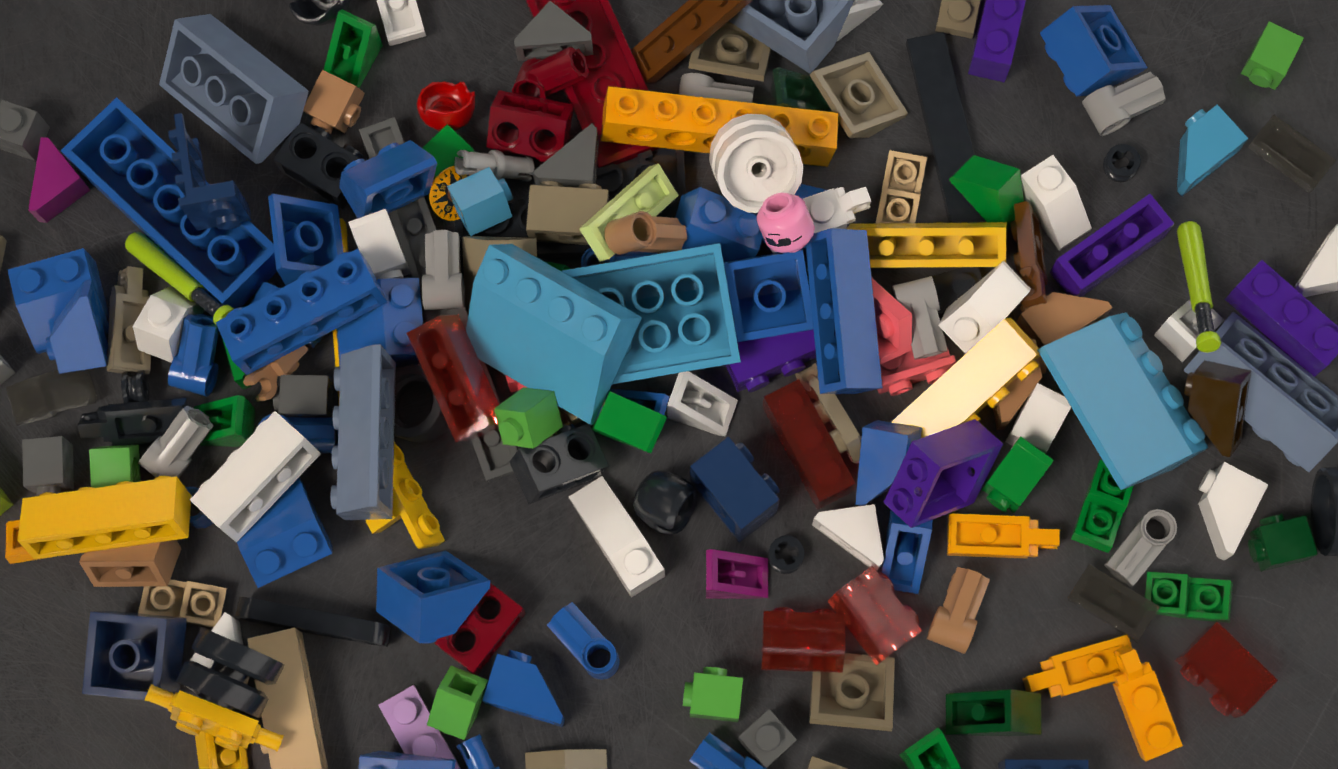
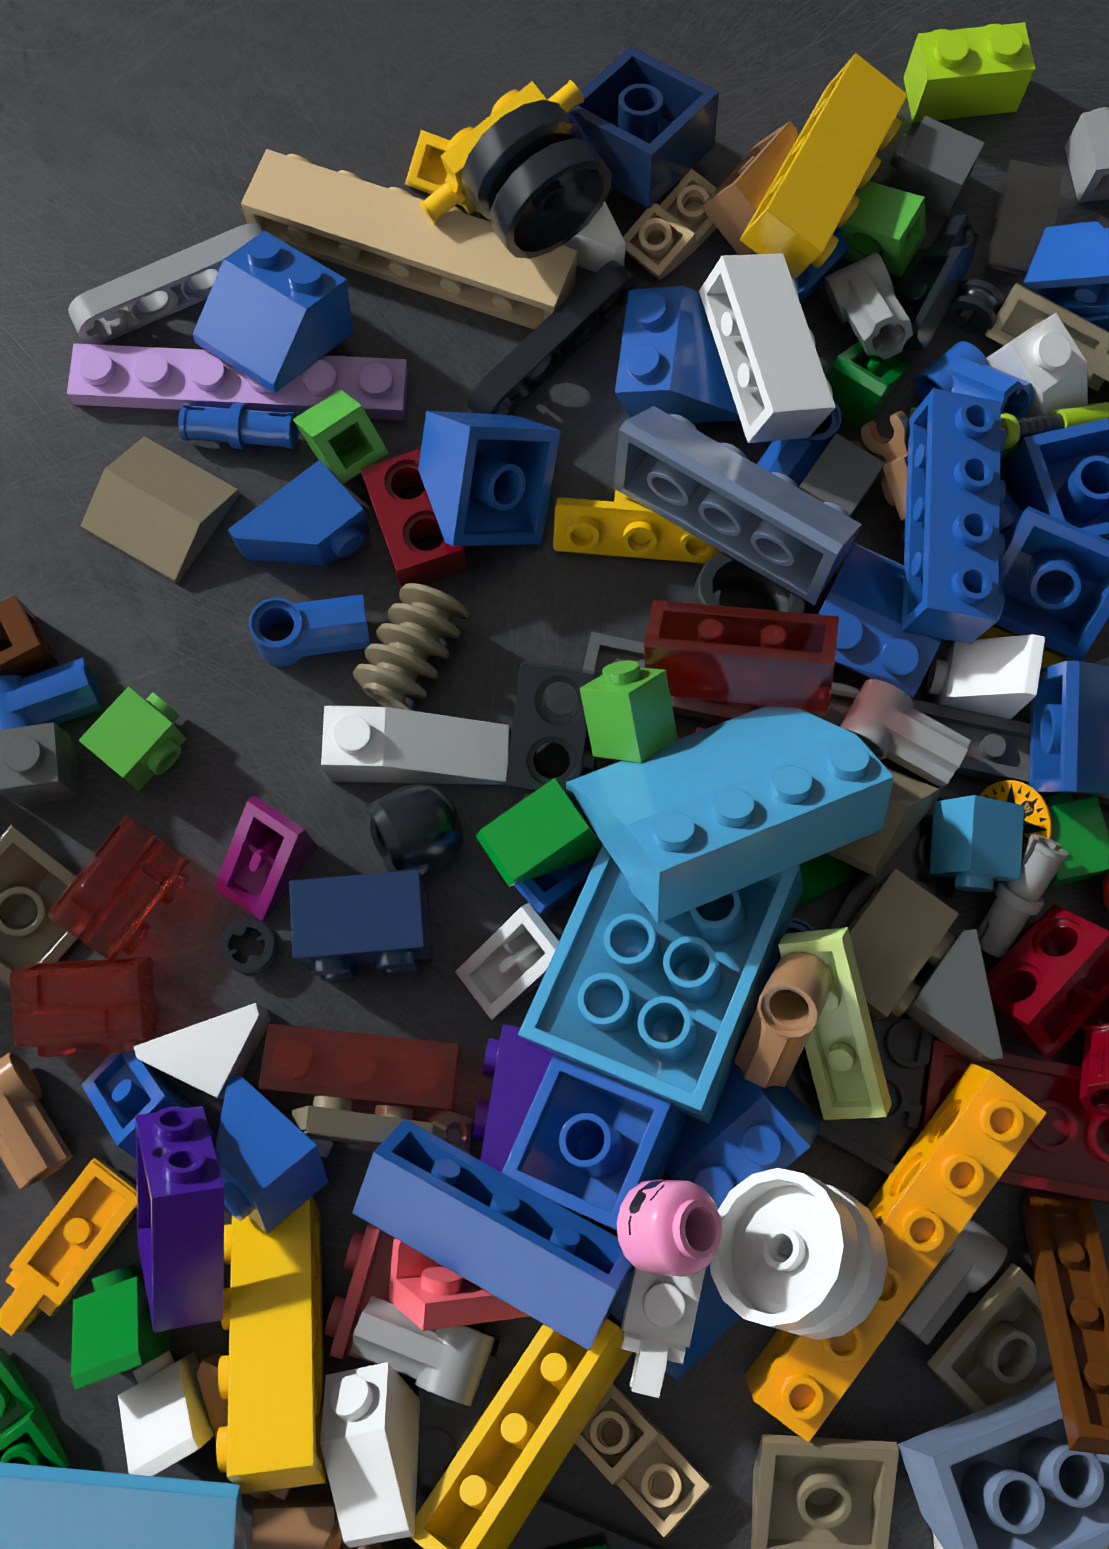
camera: 120 degrees right, 0 degrees up
(562, 575) = (408, 644): none -> dark tan piece
(796, 91) = (878, 1403): clear green slope -> none

